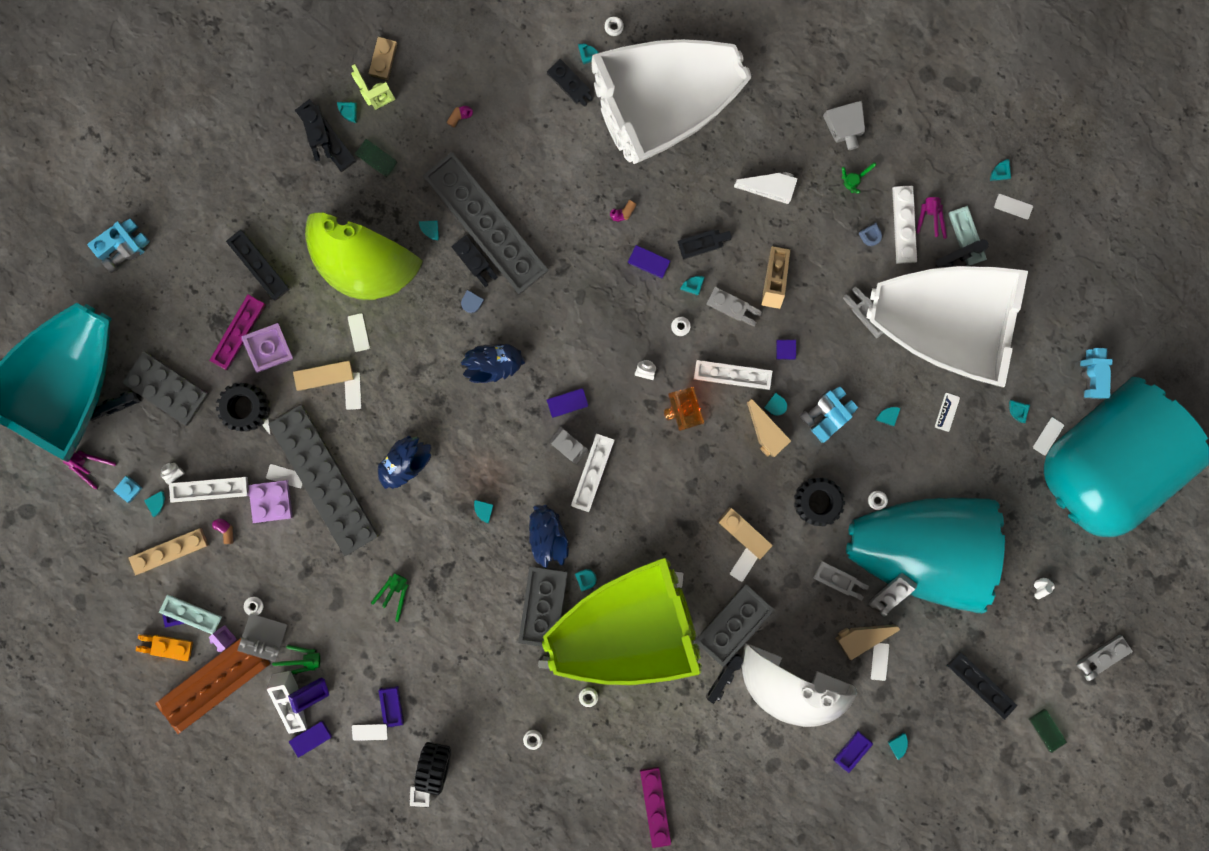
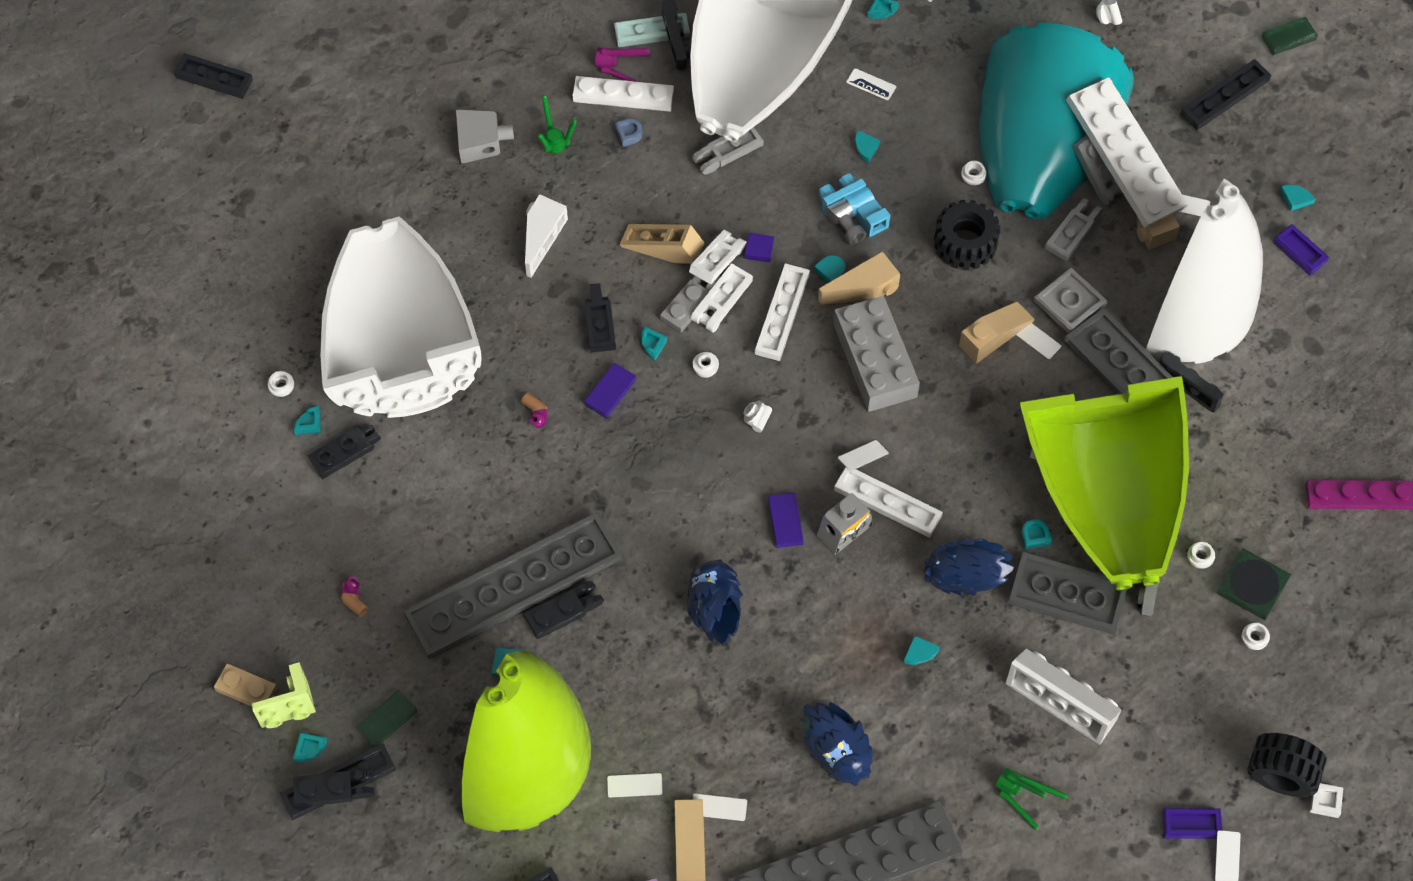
camera: 80 degrees left, 25 degrees down
(463, 612) = (1062, 695): none -> white slope
(471, 303) = (621, 622): sand blue tile -> none
(573, 735) = (1253, 584): none -> tile
(626, 450) = (863, 455): none -> white sticker
(684, 409) = (819, 372): clear orange tile -> none
(708, 448) = (876, 353): none -> light grey brick
(738, 329) = (722, 297): none -> white plate
(768, 319) = (717, 256): none -> white plate
(778, 584) = (1070, 300): none -> light grey plate
(902, 614) = (1126, 152): none -> white plate

